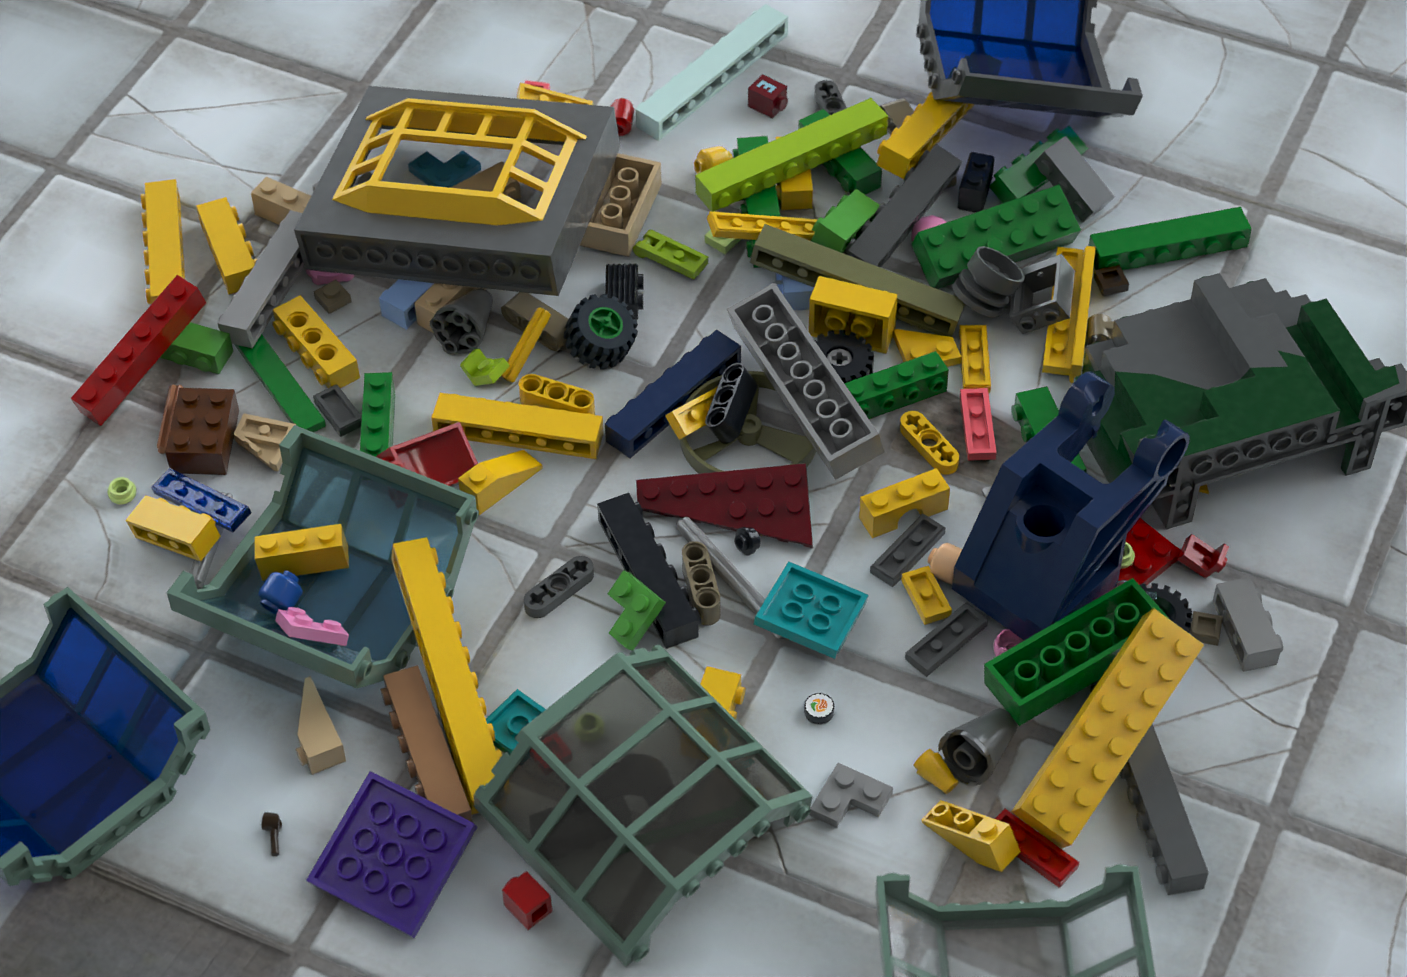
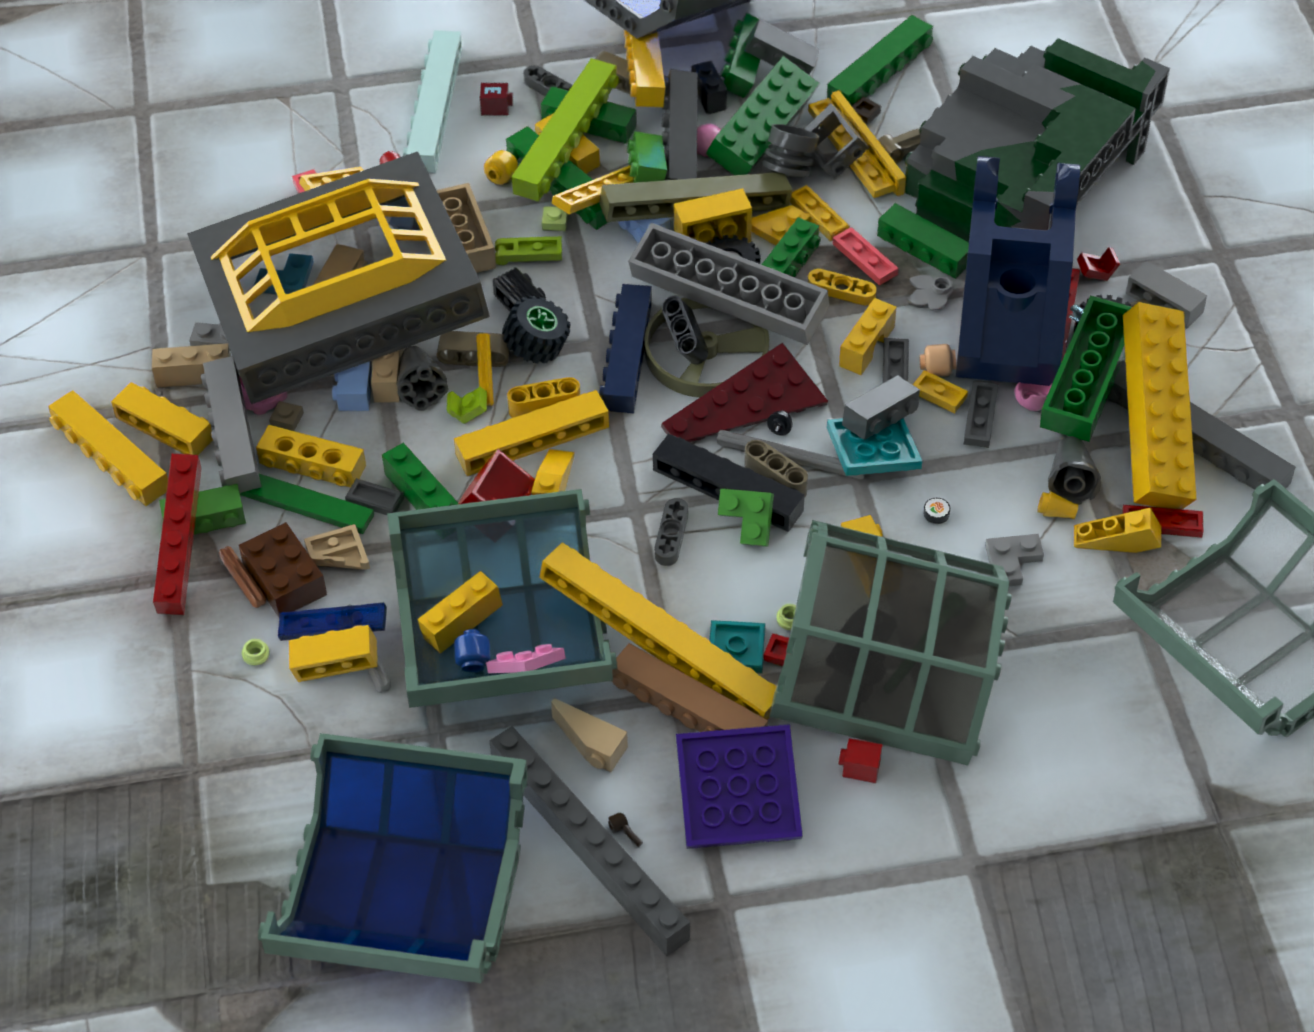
camera: 35 degrees left, 0 degrees up
(229, 825) = (596, 847): none -> dark grey brick
(691, 415) = (664, 354): yellow plate -> none
(844, 577) = (881, 407): none -> dark grey brick

